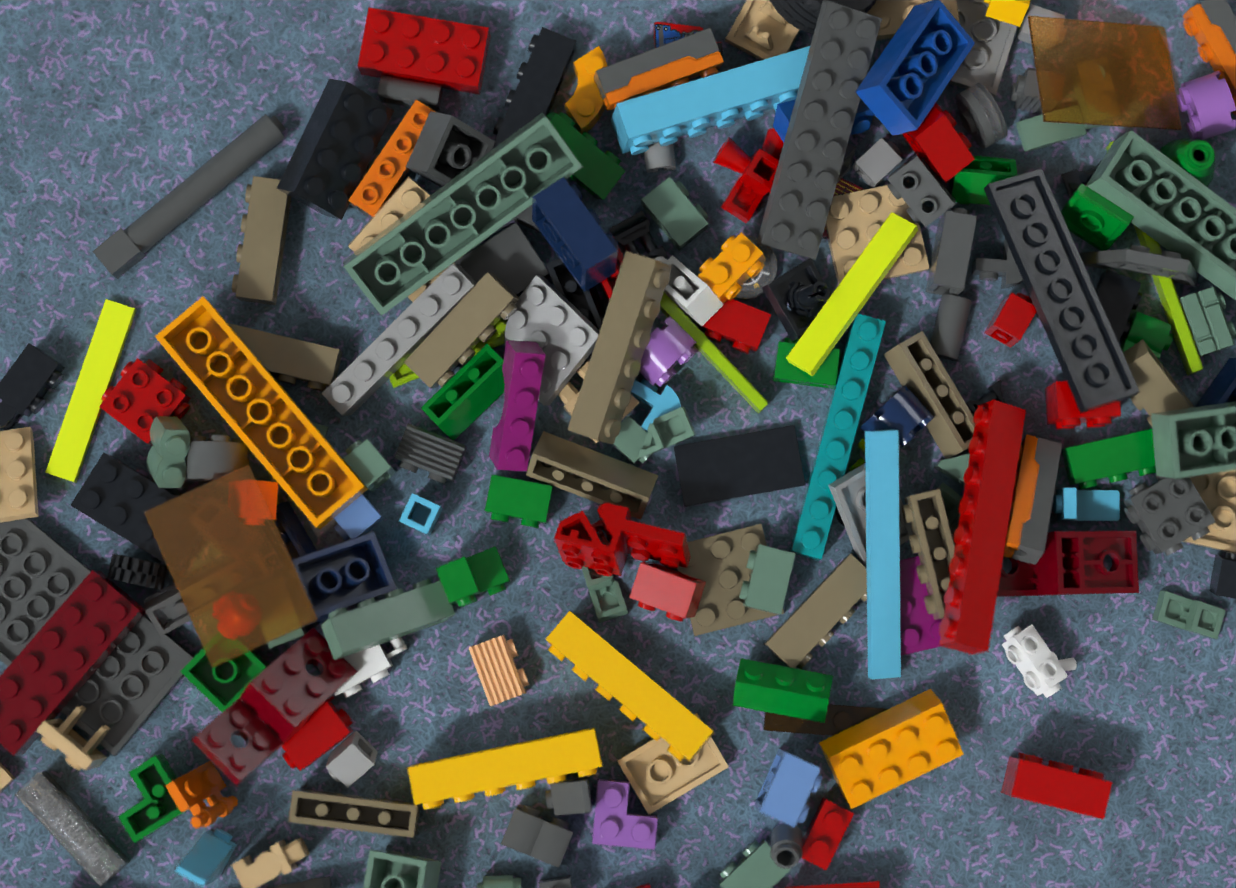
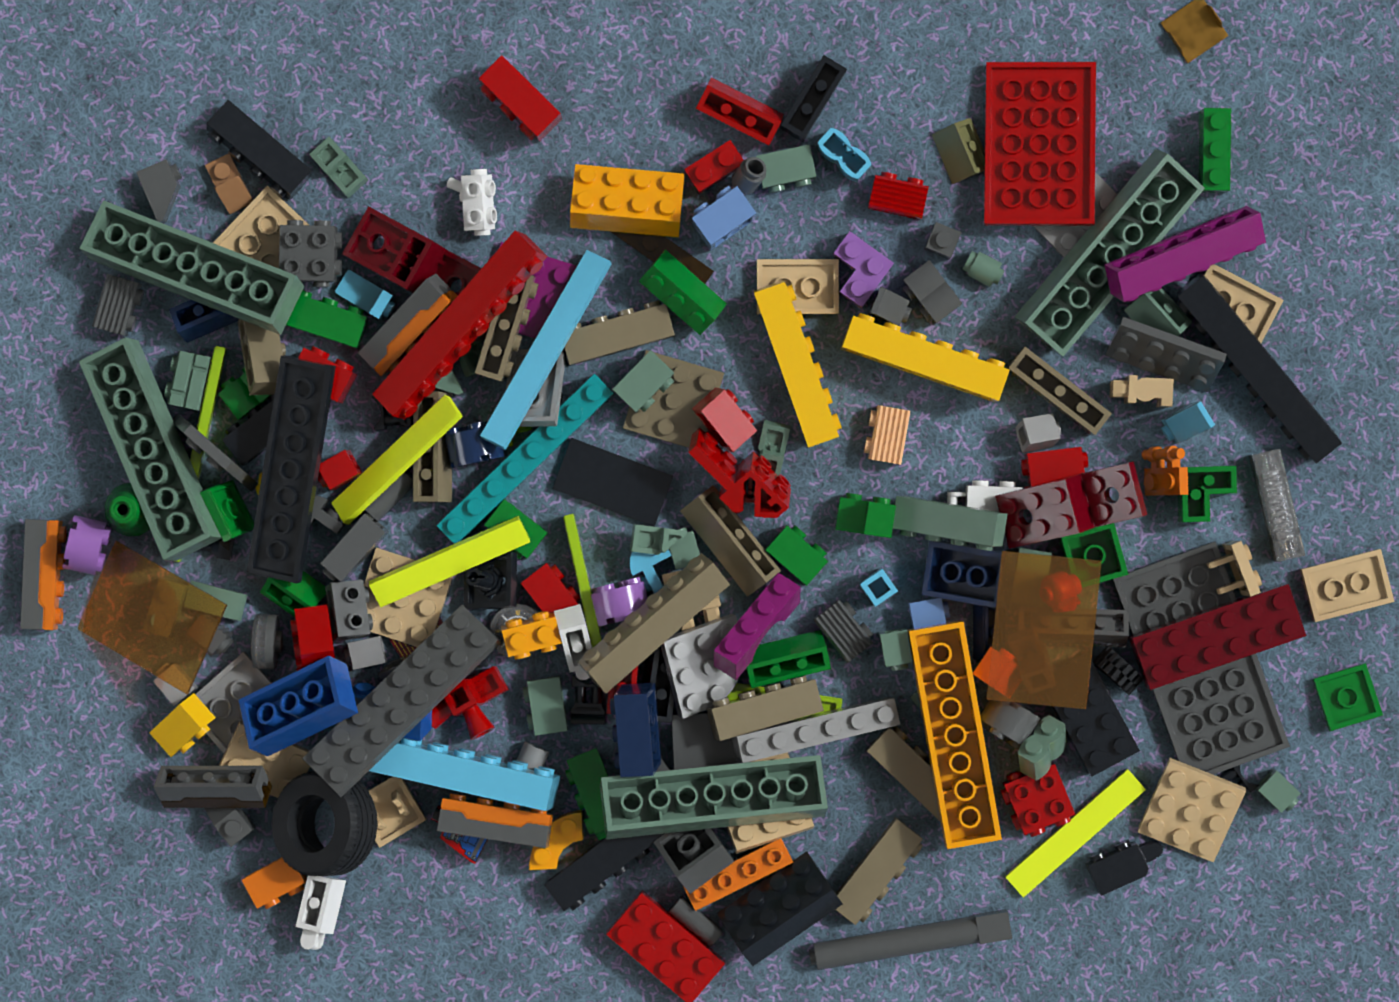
camera: 150 degrees left, 5 degrees up
(962, 362) = (397, 459): none -> neon yellow tile

